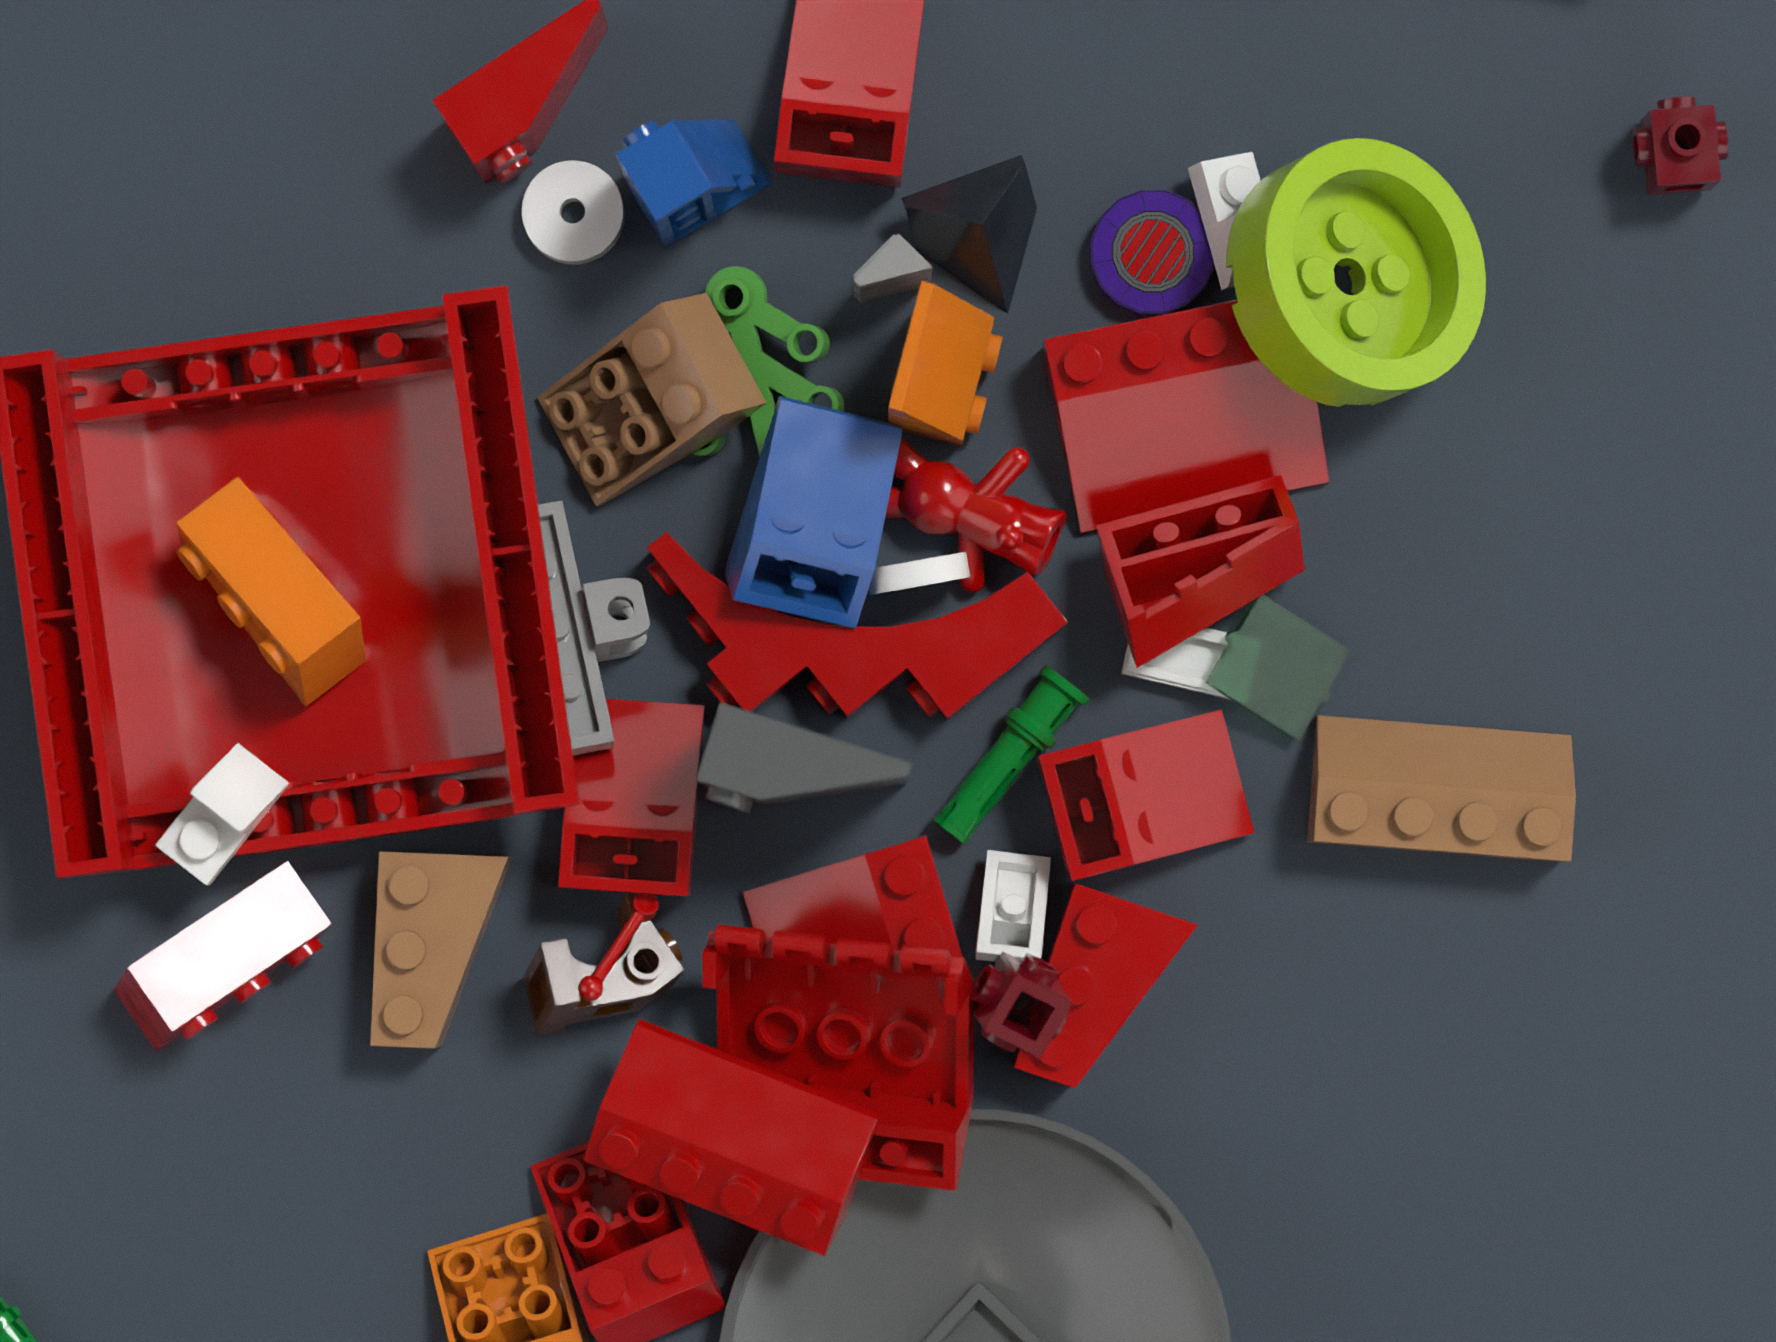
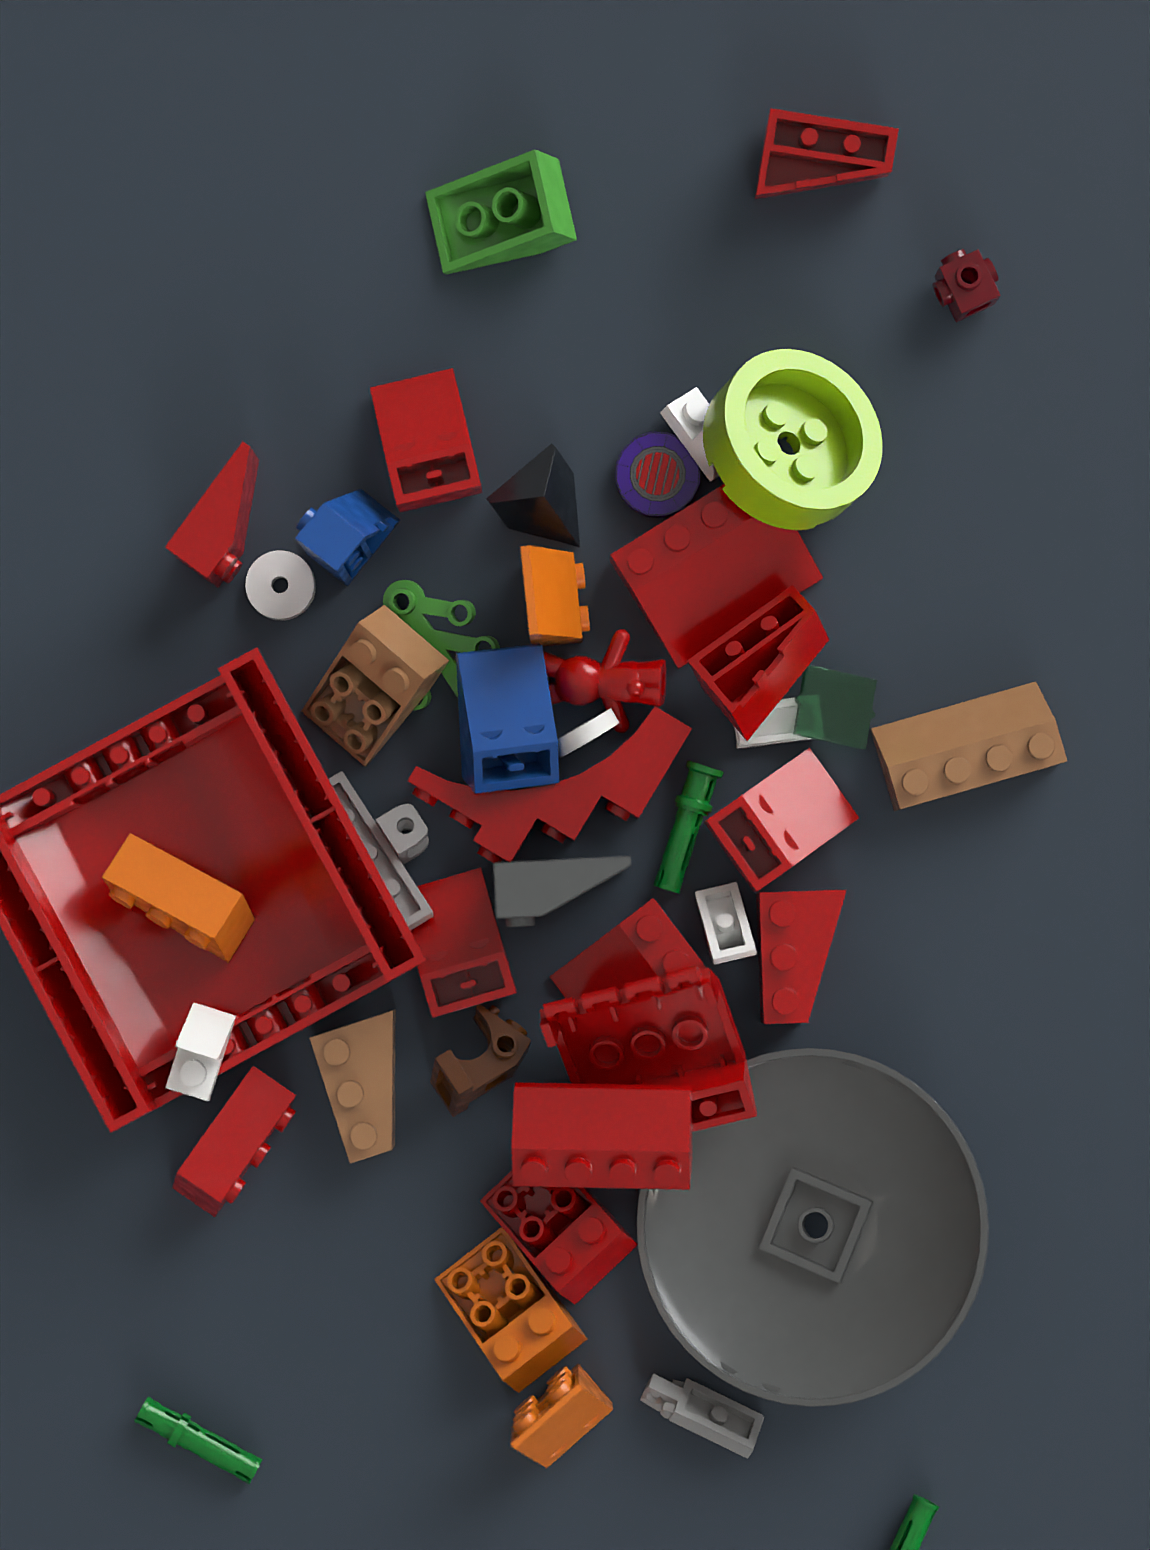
camera: 20 degrees left, 0 degrees up
(643, 908) = (490, 1010): red hinge -> none
(891, 271) = (497, 547): light grey slope -> none
(1031, 1019) = (757, 992): dark red brick -> none

